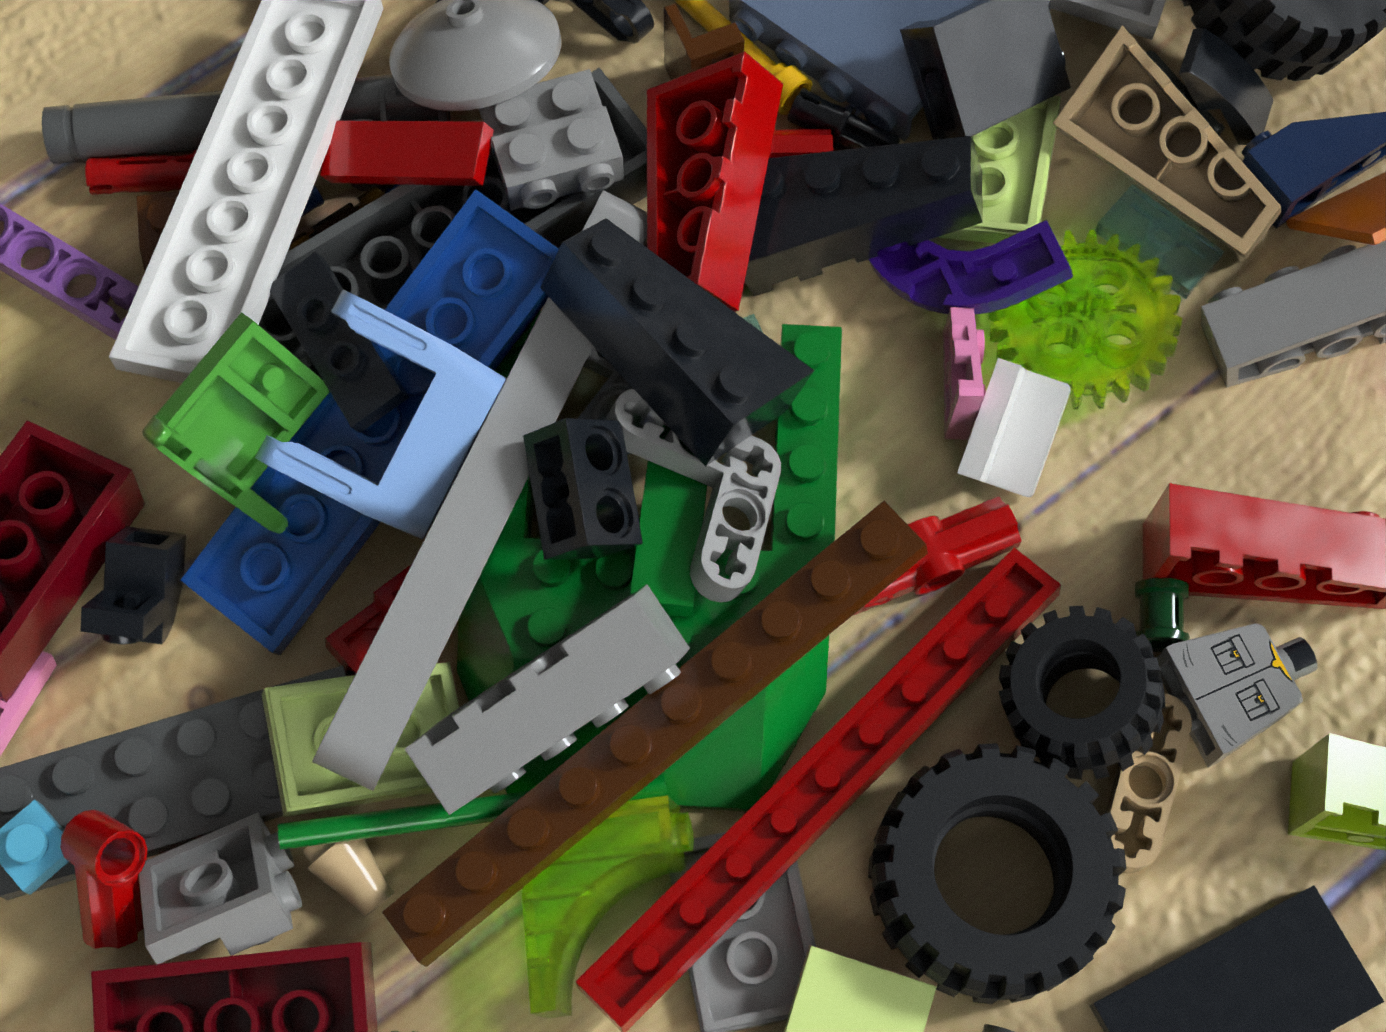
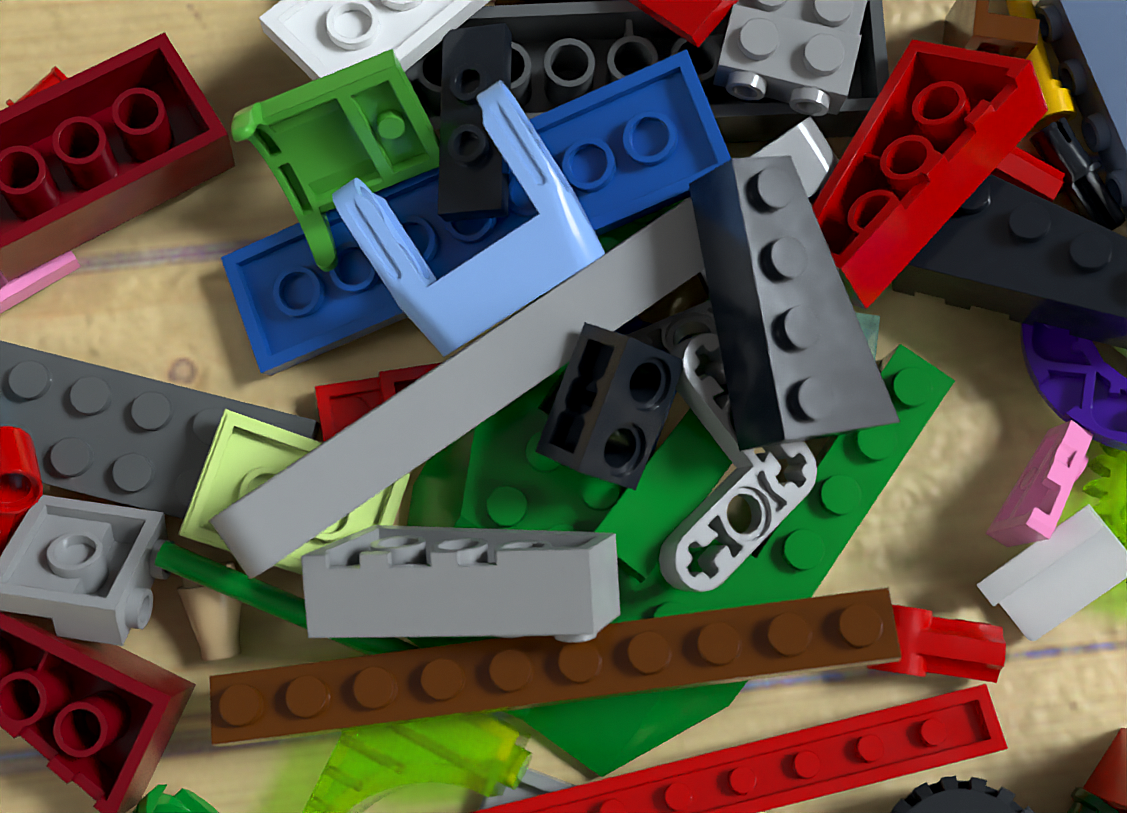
camera: 30 degrees right, 10 degrees up
(139, 587) = (180, 244): black brick -> none

